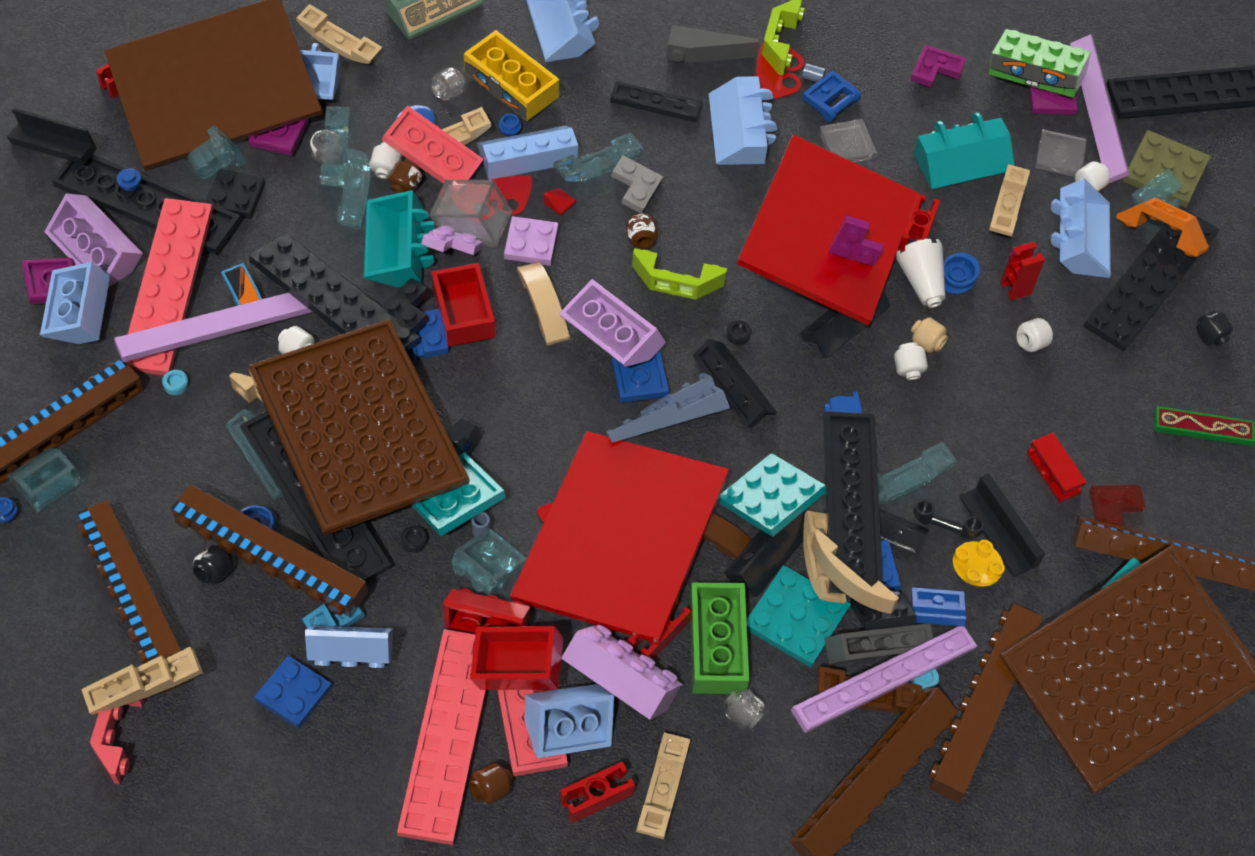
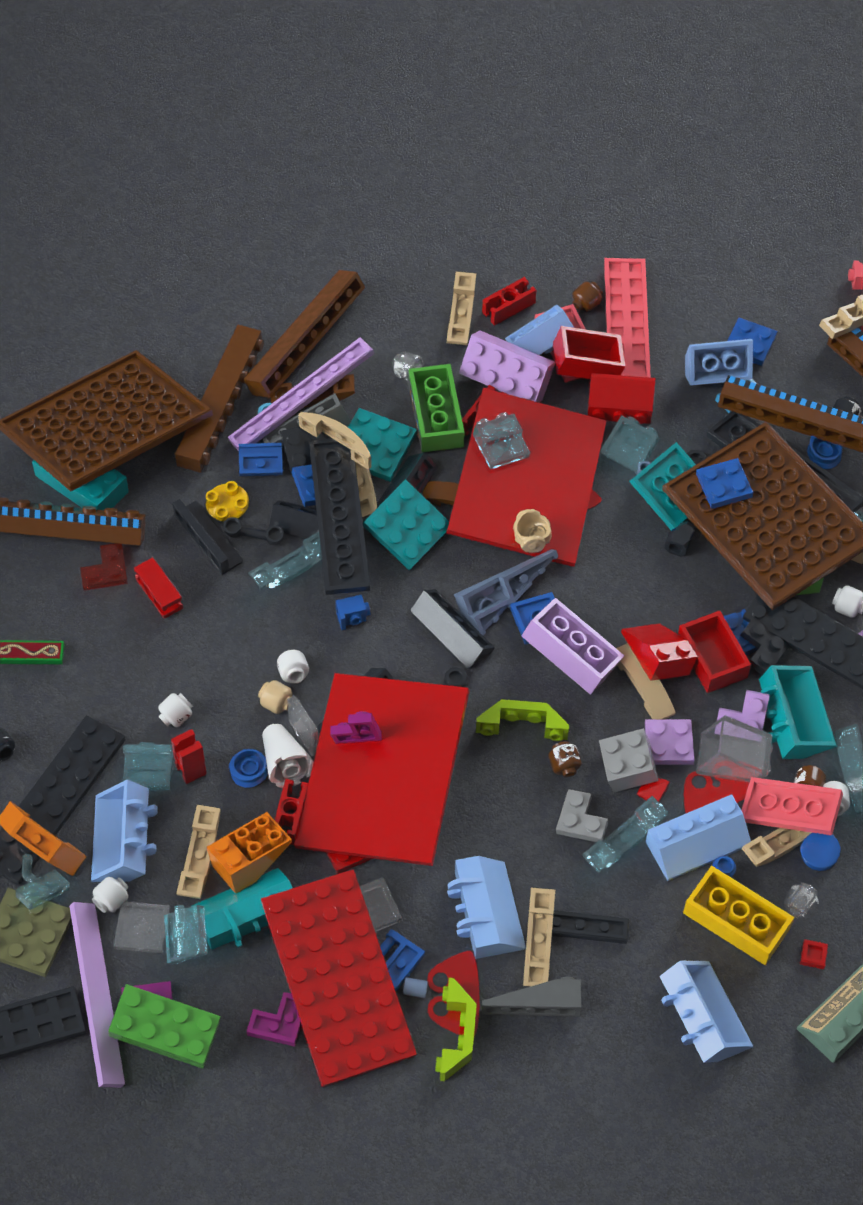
camera: 175 degrees right, 0 degrees up
(399, 459) = (724, 483): none -> blue plate
(449, 50) = (813, 954): none -> red tile
(520, 313) = (660, 651): none -> red slope
(580, 214) = (628, 760): none -> light grey brick
(633, 445) = (532, 530): none -> tan hair
(649, 562) = (501, 440): none -> clear light blue plate
(699, 83) = (539, 936): none -> tan slope
(886, 78) = (338, 978): none -> red plate
(904, 289) = (302, 725): none -> clear plate
(964, 185) = (248, 851): none -> orange slope
(1022, 124) = (185, 934): none -> clear light blue plate
(1061, 288) = (148, 764): none -> clear light blue plate

